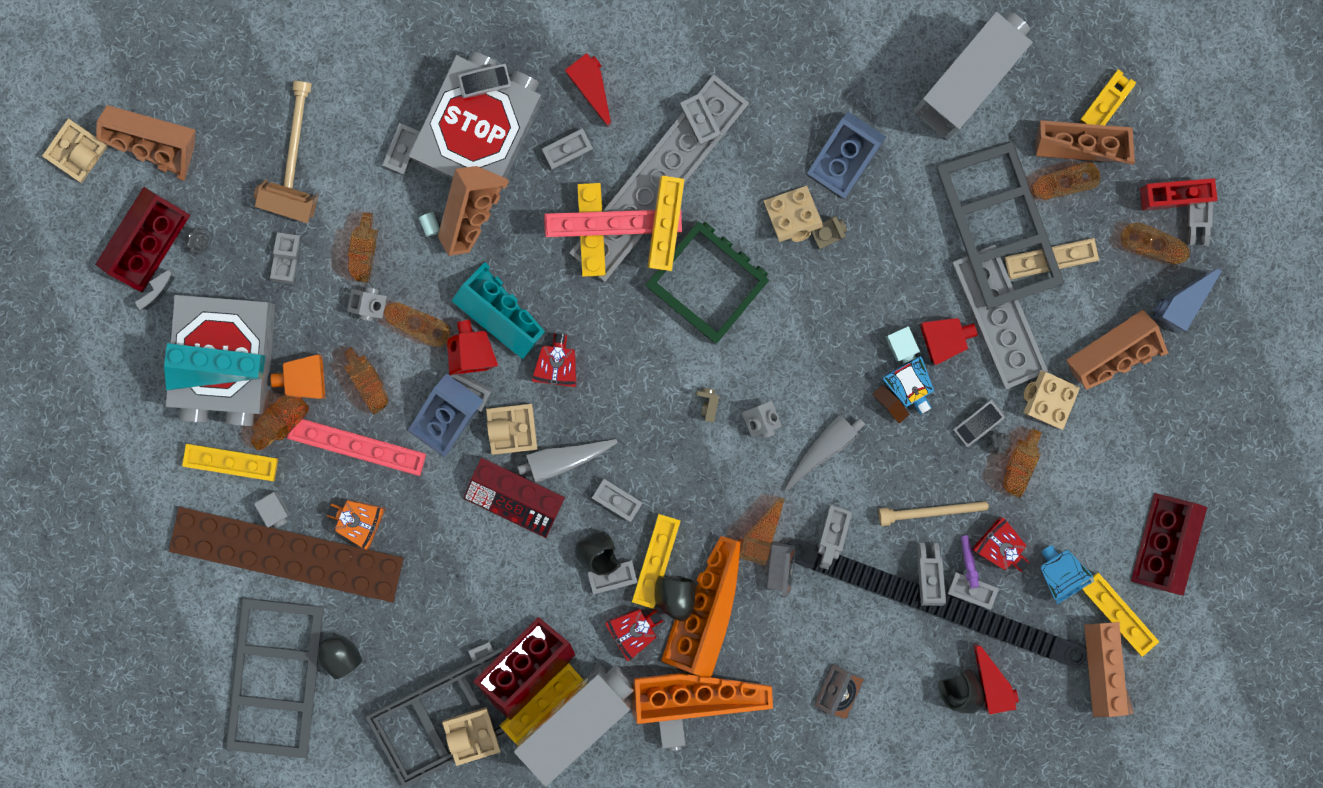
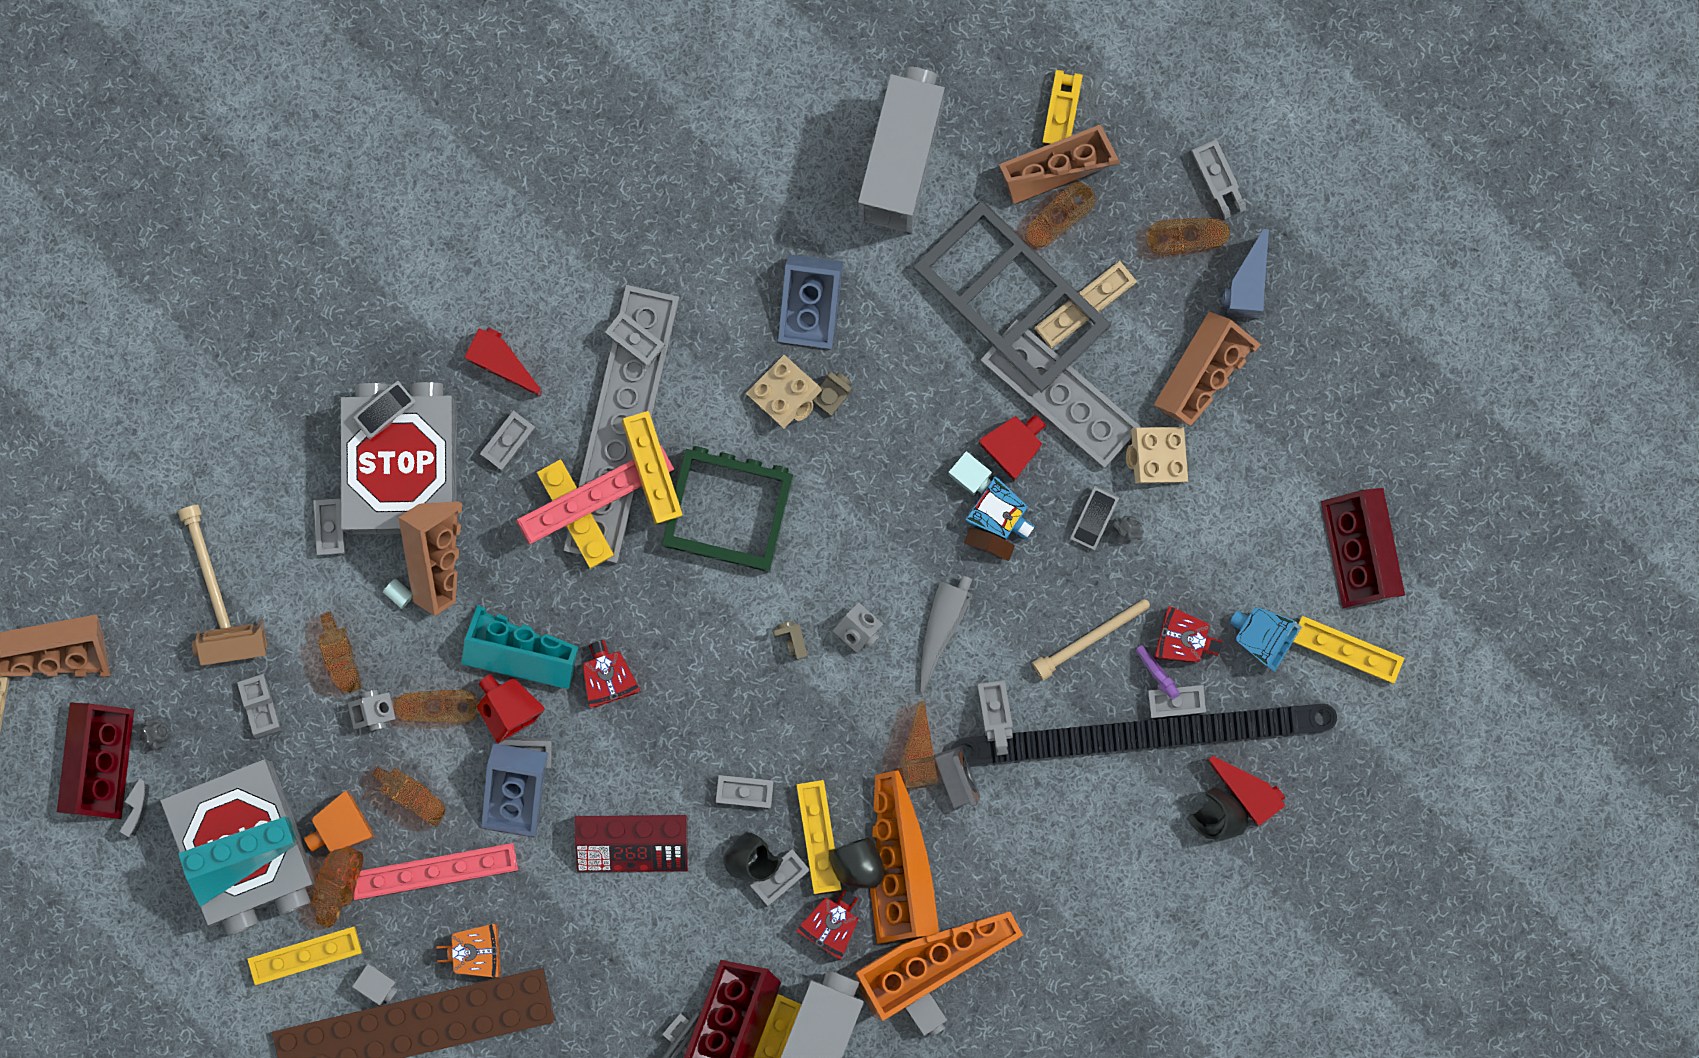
camera: 15 degrees left, 5 degrees down
(511, 429) = (593, 770): tan plate -> none
(556, 461) = (660, 779): light grey piece -> none
(839, 692) = (1087, 882): flat silver panel -> none
(931, 576) = (1123, 707): light grey hinge -> none
(1022, 464) = (1162, 539): clear orange piece -> none
(1106, 670) = (1362, 717): nougat wedge -> none
(1178, 194) = (1184, 170): red slope -> none

